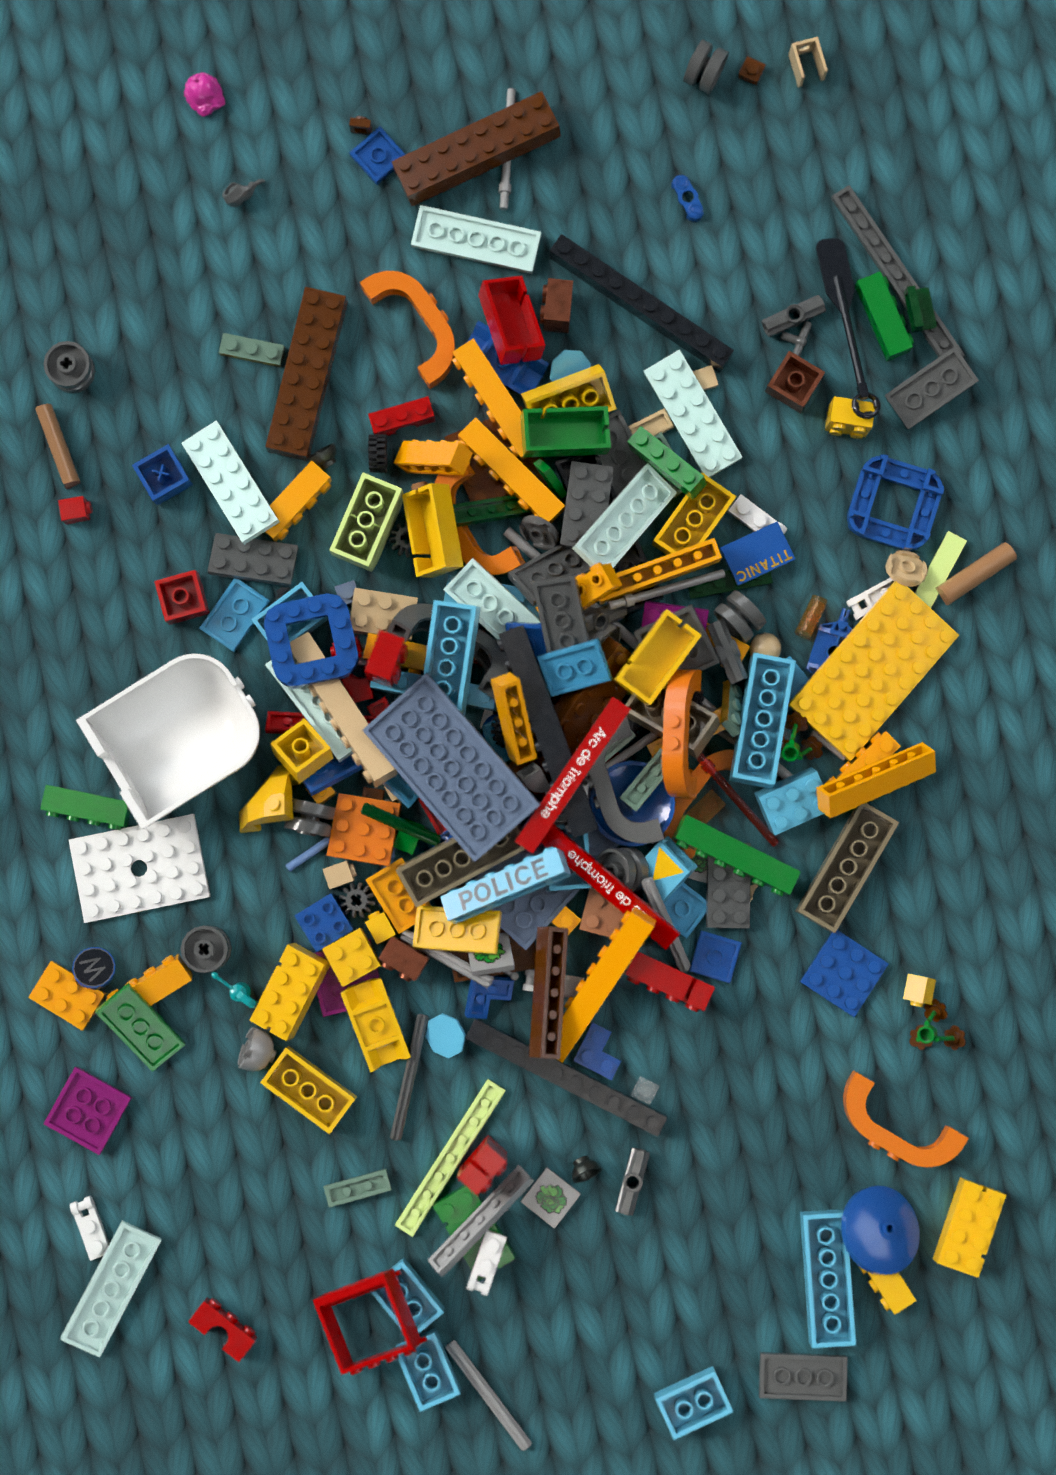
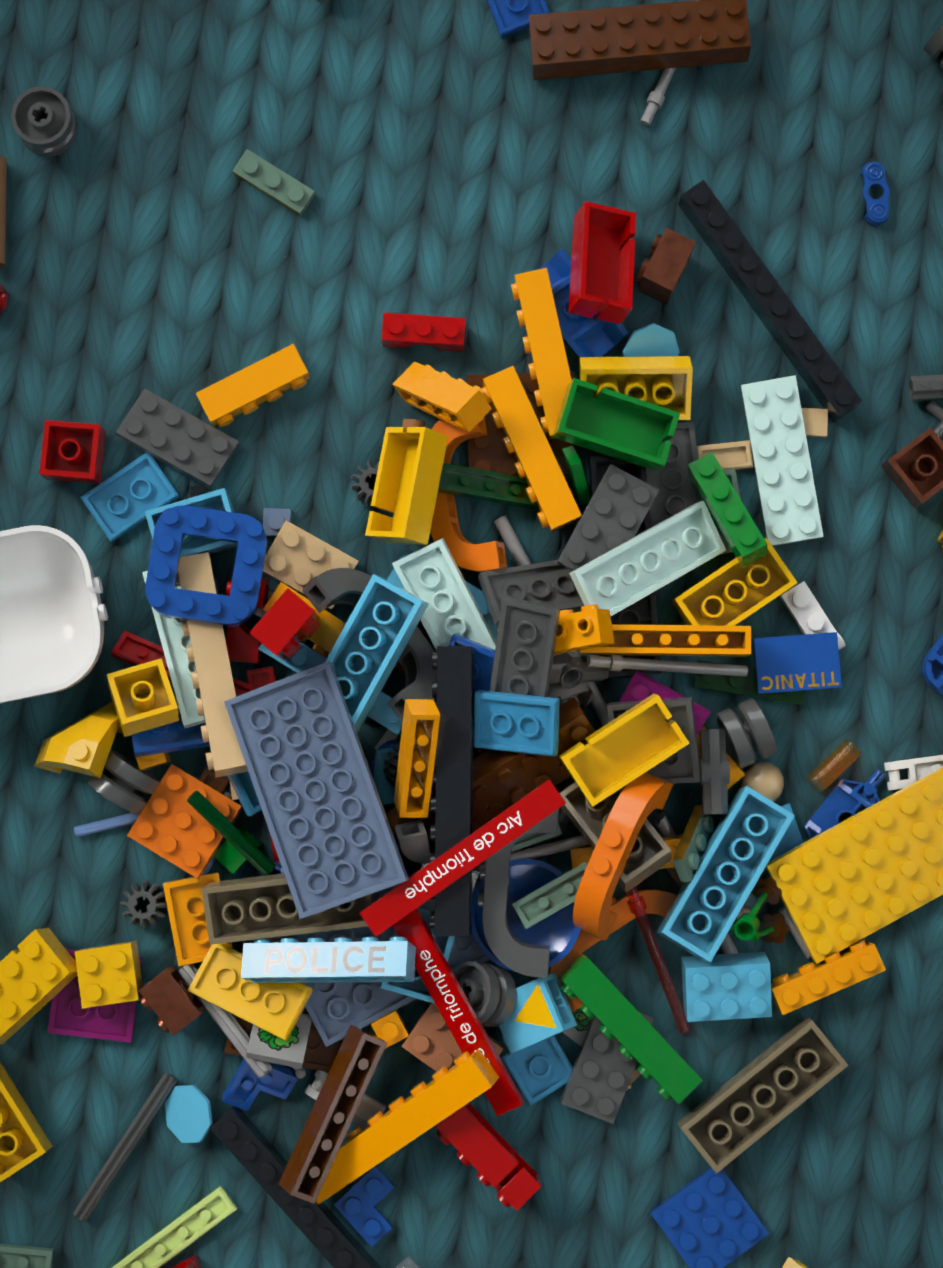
camera: 20 degrees right, 0 degrees up
(162, 474) = (106, 294): blue brick -> none
(230, 482) = (185, 334): light aqua plate -> none
(306, 374) = (328, 236): reddish brown brick -> none
(324, 456) = (311, 345): pearl dark grey piece -> none
(324, 922) = (93, 917): blue brick -> none
(340, 874) = (135, 864): tan brick -> none
(367, 522) = (331, 445): yellowish green brick -> none
(375, 1023) = (106, 1065): yellow piece -> none
(377, 453) = (377, 365): black tyre -> none
(380, 927) = (159, 948): yellow brick -> none
(397, 283) = (473, 163): orange arch -> none
(476, 239) = (597, 148): light aqua plate -> none
(539, 531) = (539, 536): dark grey tile -> none
(657, 904) = (509, 1058): light grey axle -> none
(706, 807) = (614, 953): clear orange plate -> none
(715, 956) = (557, 1141): blue tile -> none
(876, 780) = (839, 1002): light orange brick -> none

